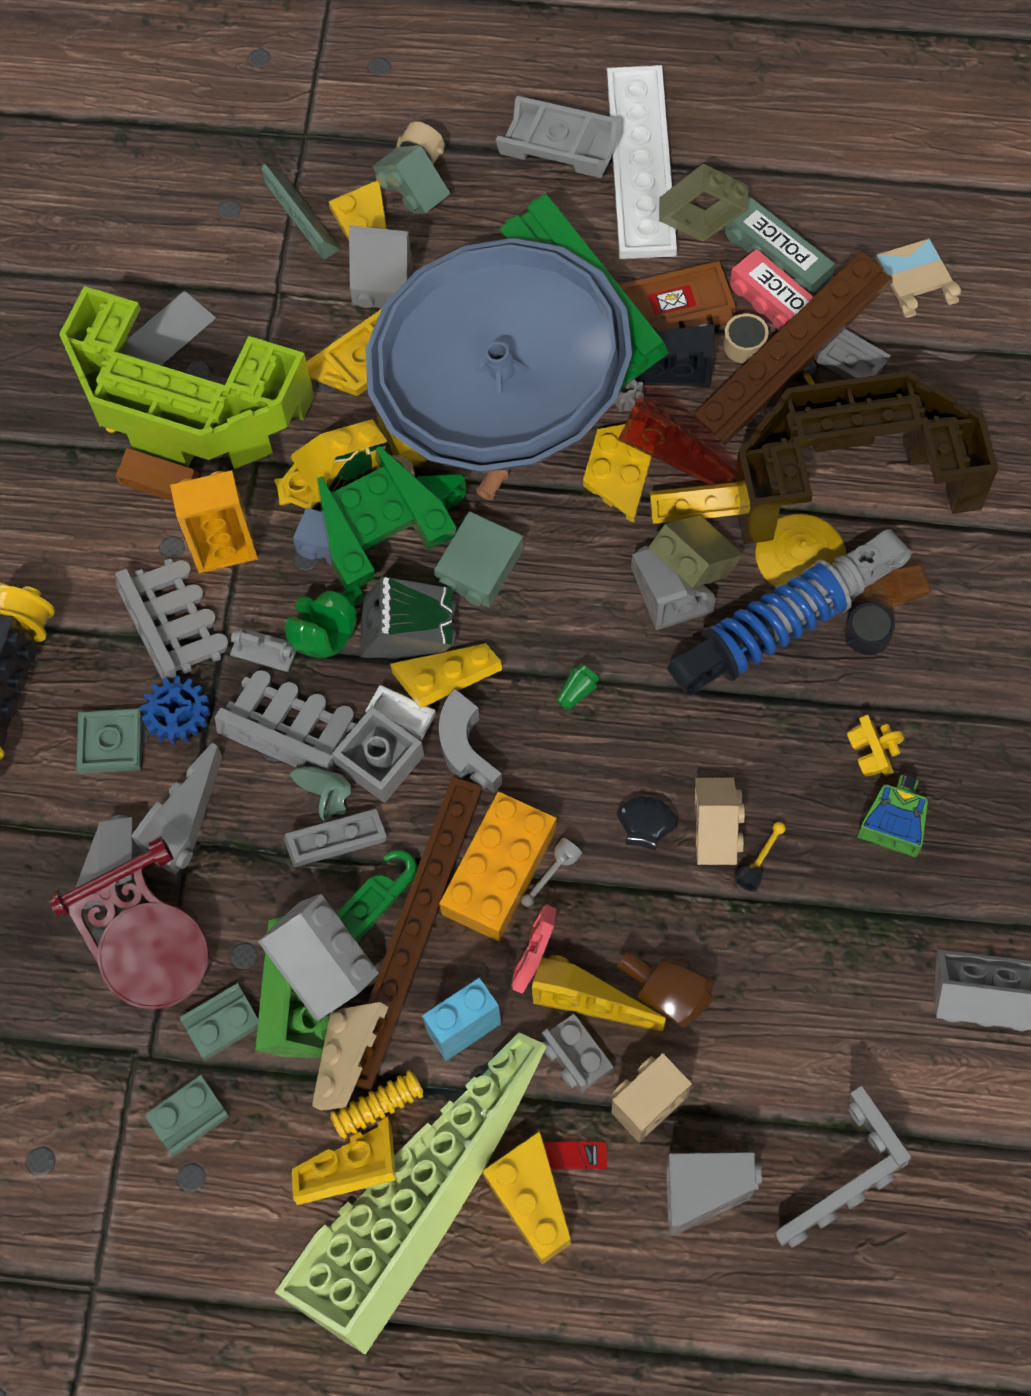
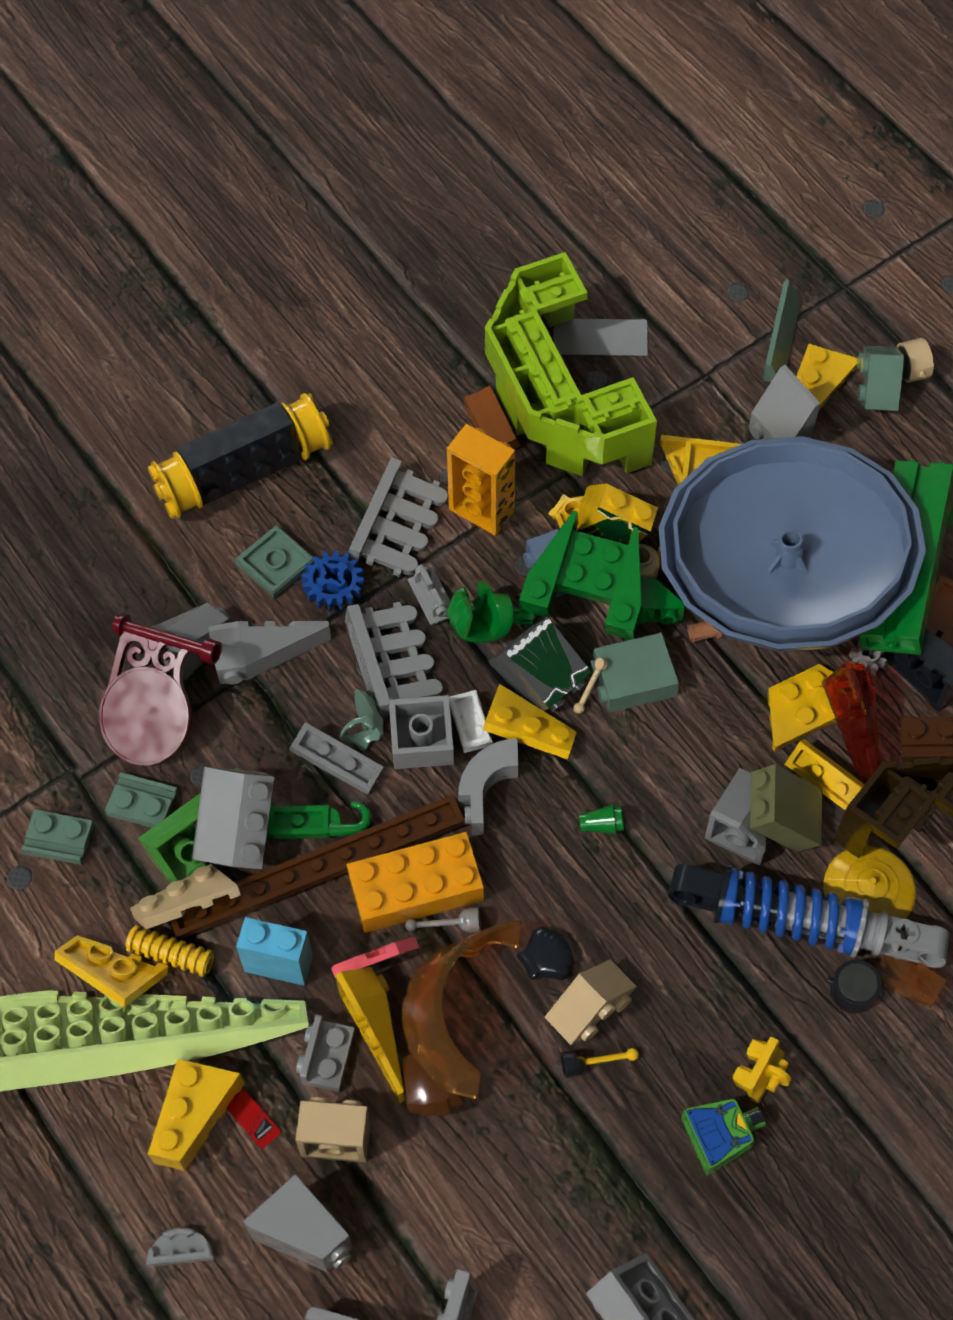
camera: 45 degrees right, 5 degrees down
(454, 576) = (600, 664): none -> tan hinge
(621, 945) = (423, 1014): none -> clear orange windscreen
(631, 1298) = (179, 1247): none -> light grey tile

